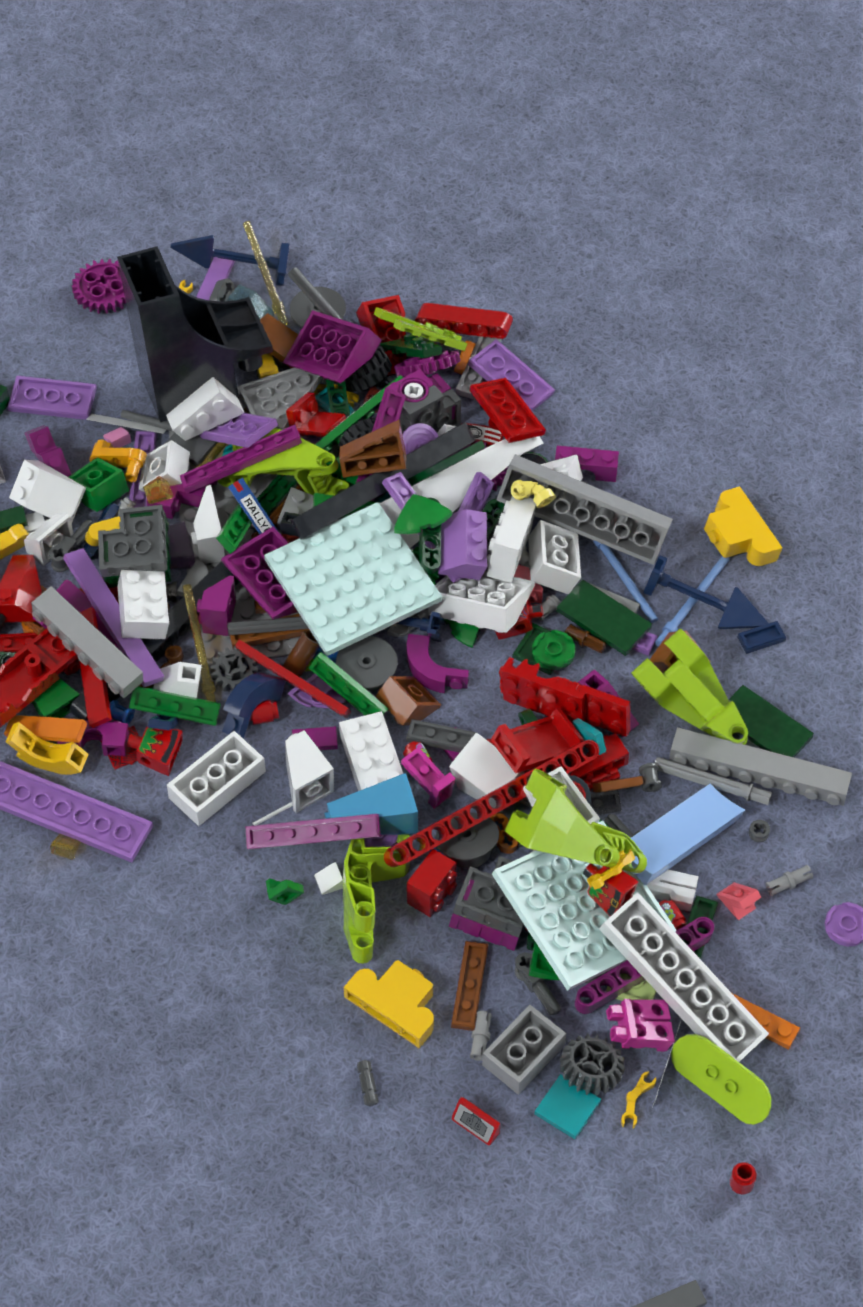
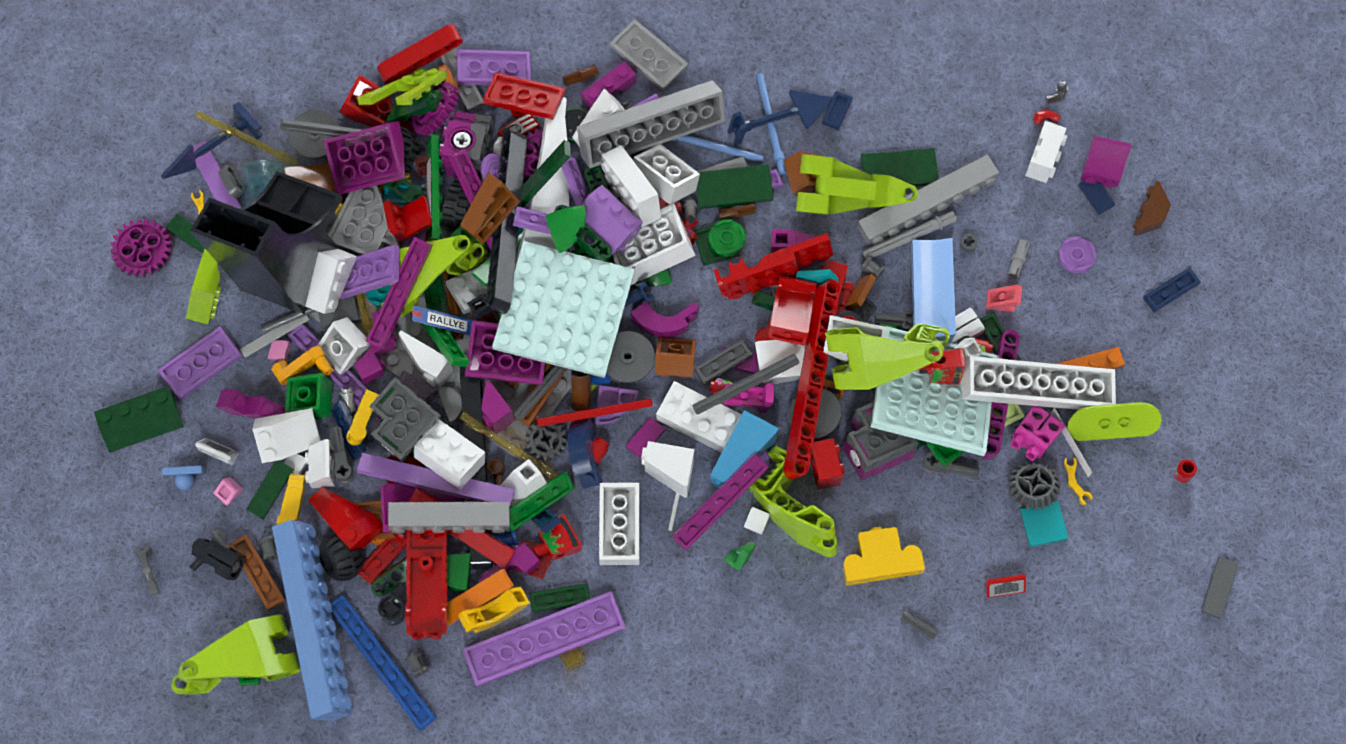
camera: 45 degrees left, 15 degrees up
(105, 339) = (204, 291): none -> lime slope
(109, 792) = (559, 597): none -> dark green tile
(157, 490) = (362, 365): clear yellow slope -> none
(346, 686) = (635, 385): green tile -> none
(432, 757) = (745, 384): none -> dark grey axle
(469, 986) = (910, 505): dark orange tile -> none
(480, 1035) = (951, 530): light grey pin -> none
(524, 489) = (608, 147): light yellow arm -> none
(524, 1049) = (988, 515): light grey brick -> none
(574, 438) = (580, 75): none -> reddish brown axle
(597, 880) = (941, 371): yellow piece -> none
(648, 468) = (648, 55): none -> light grey plate
(658, 902) = (969, 347): none -> white slope
(740, 529) = (751, 46): yellow brick -> none

